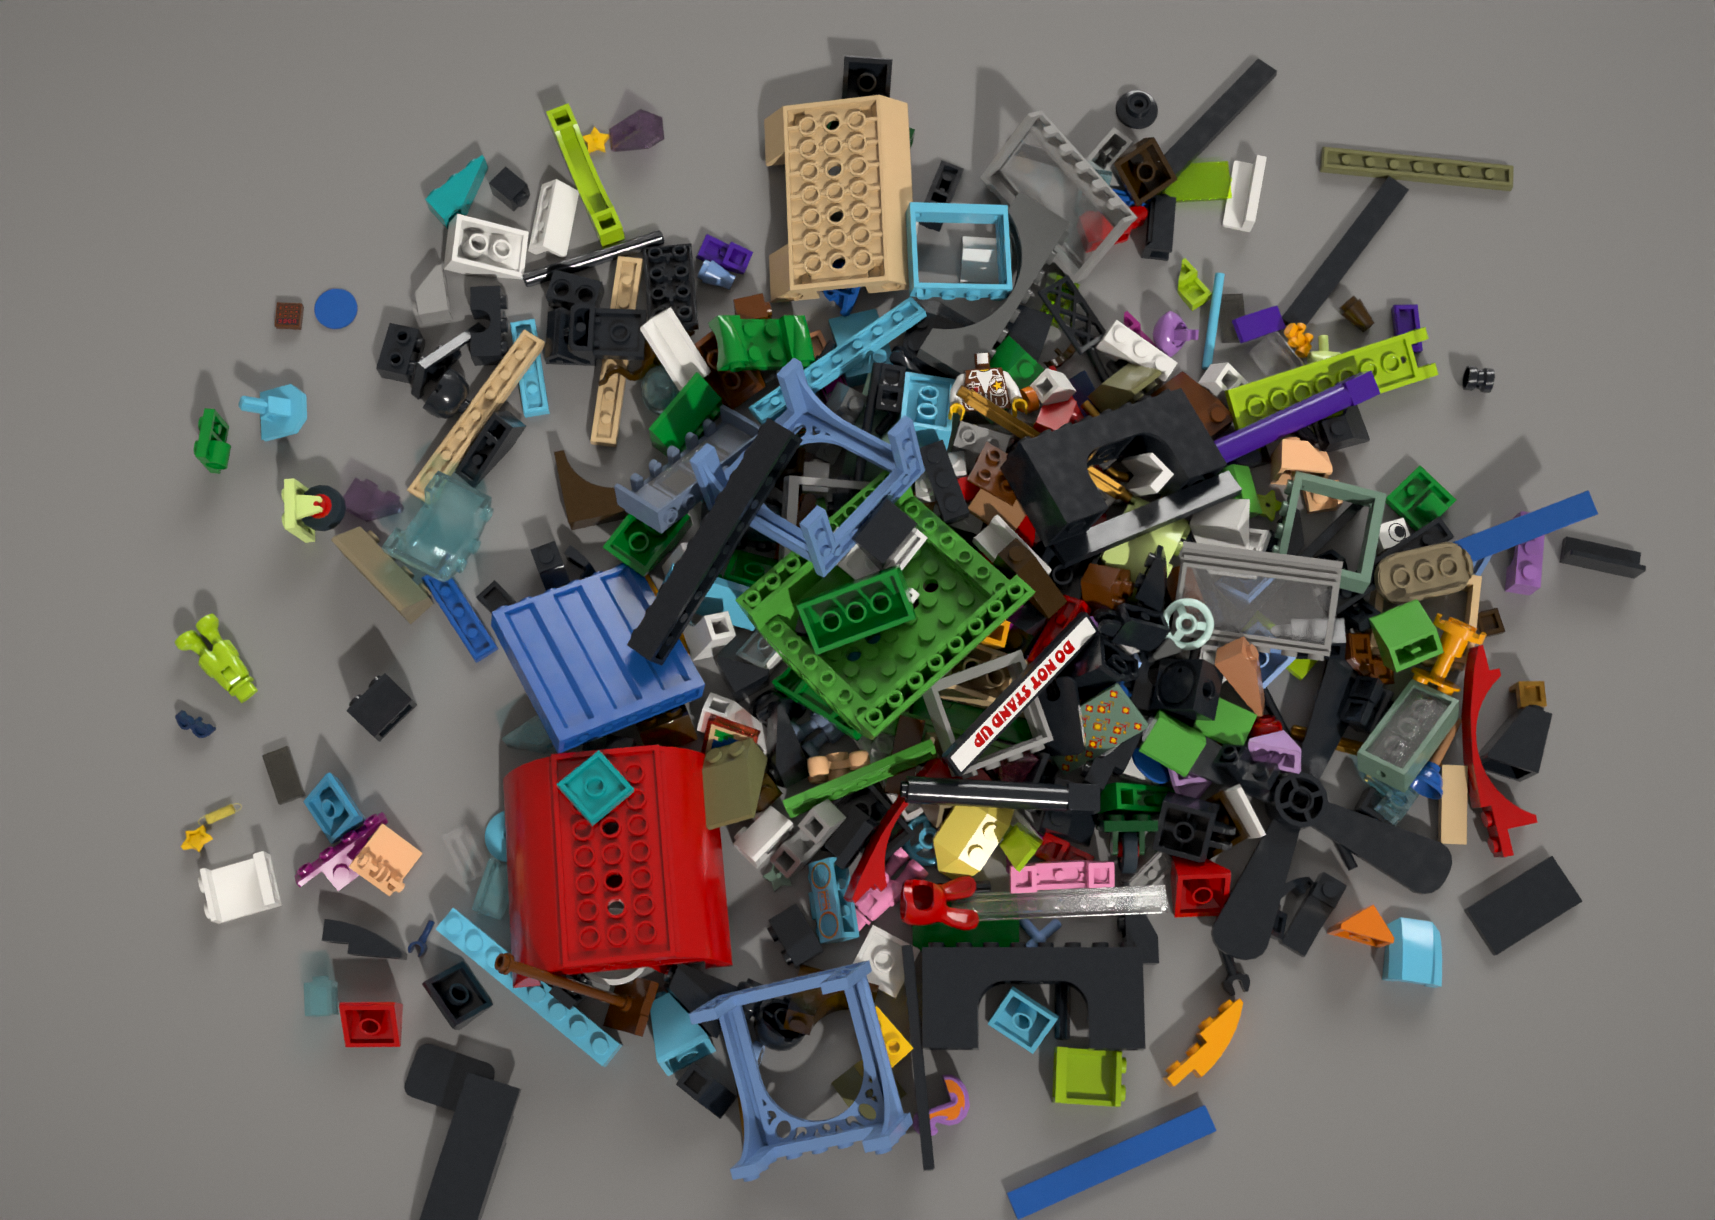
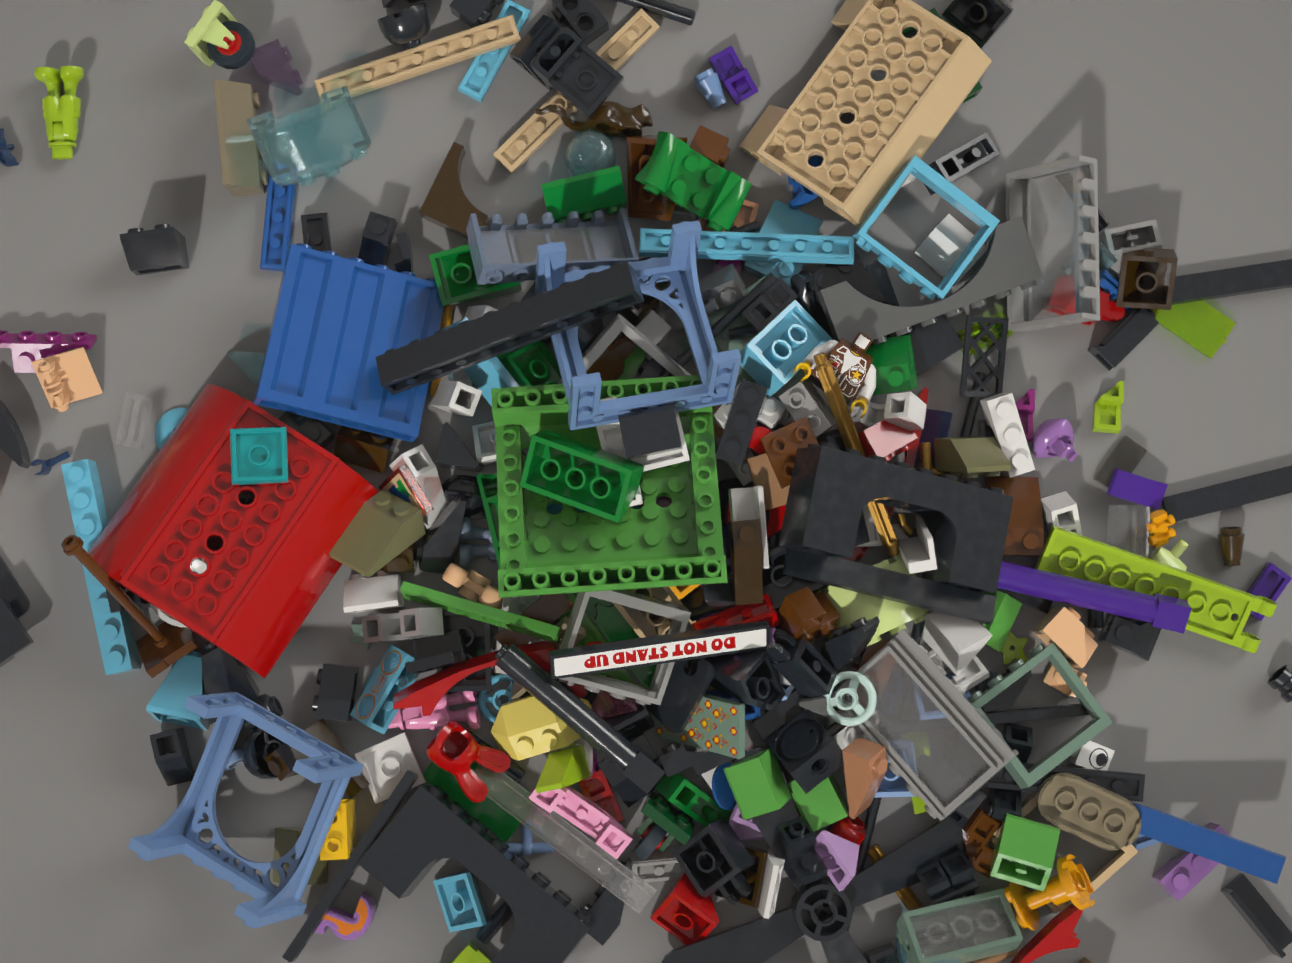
camera: 40 degrees right, 10 degrees up
(283, 775) = (42, 244): clear smoke tile -> none
(333, 808) = (61, 303): dark azure slope -> none
(457, 995) = (40, 529): black slope -> none
(490, 447) = (408, 95): black slope -> none
(493, 891) = (130, 467): clear light blue panel -> none
(671, 282) = (662, 71): black tile -> none
(674, 348) = (618, 129): white panel -> none
(1030, 396) = (878, 405): orange tile -> none
(1062, 357) = (942, 387): dark brown piece -> none
(1136, 117) = (1189, 222): black piece -> none
(1213, 320) = (1101, 454): medium azure bar -> none
(1245, 188) = (1227, 363): white panel -> none
(1419, 499) = (1145, 745): green plate -> none
(1490, 623) = (1113, 892): dark brown tile -> none

